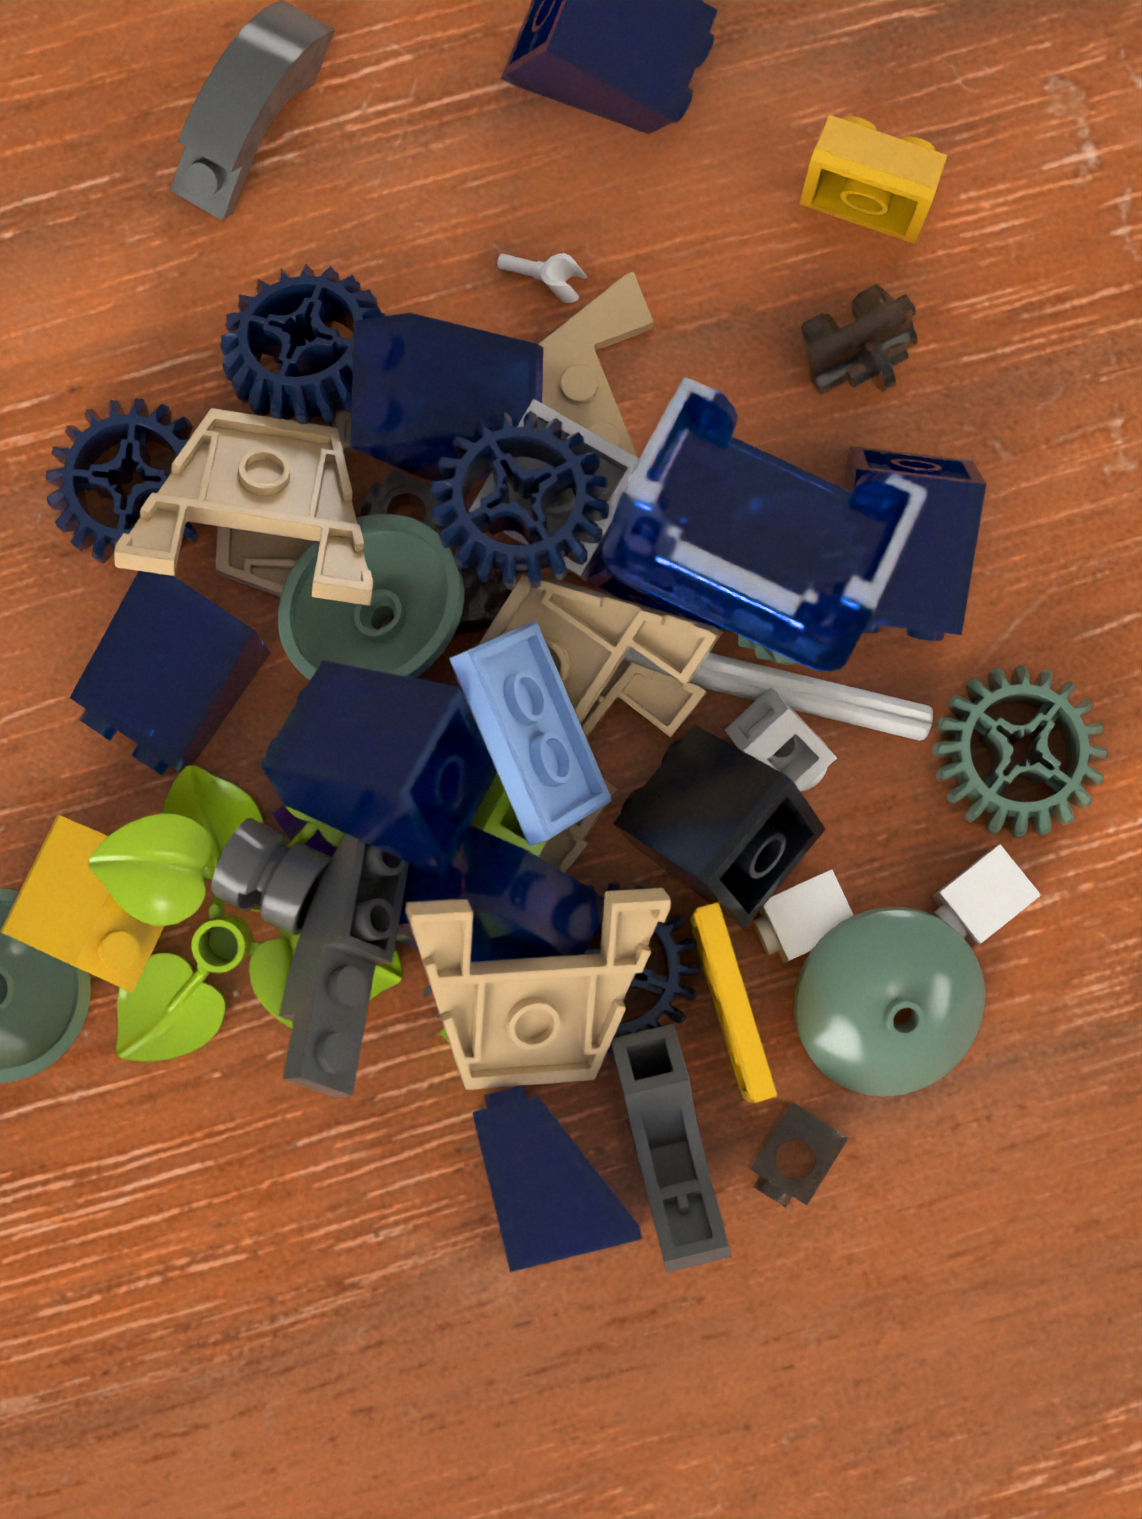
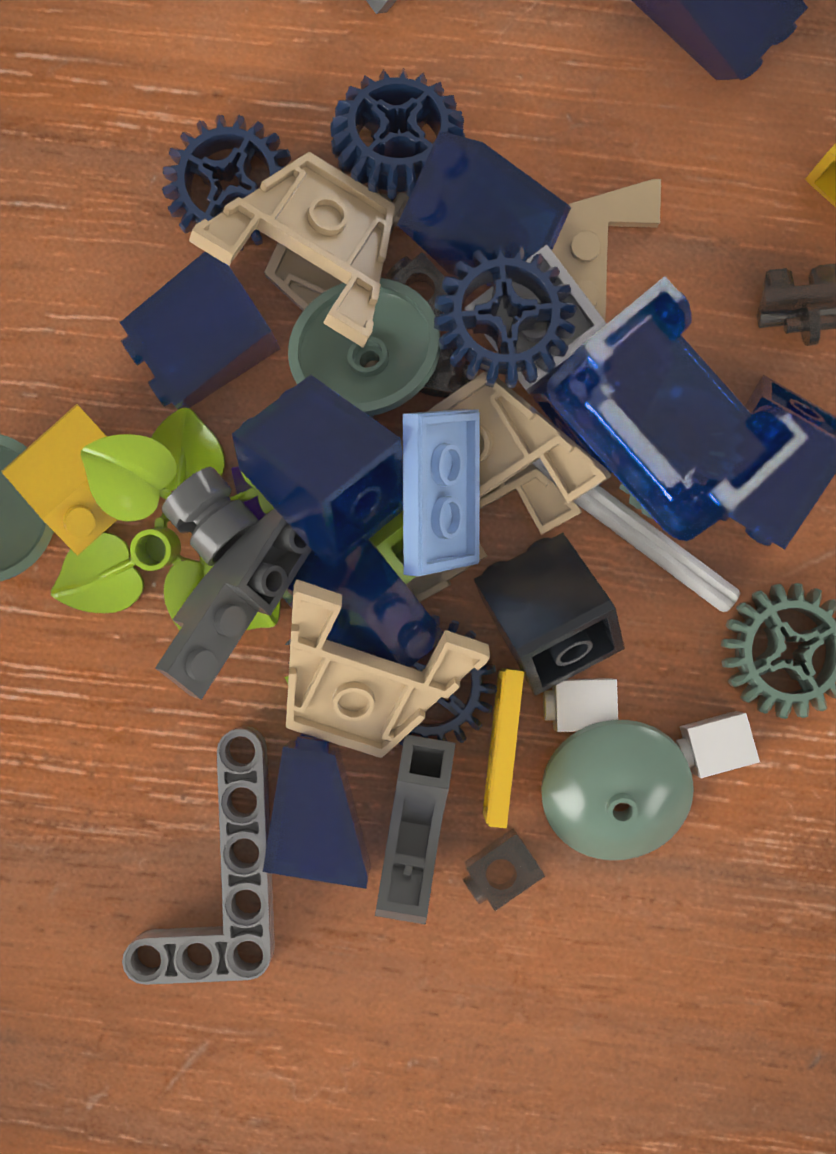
camera: 20 degrees right, 5 degrees up
(480, 1300) = (235, 876): none -> light grey beam
(552, 272) = (601, 154): white hand -> none
(781, 740) = (620, 570): white brick -> none

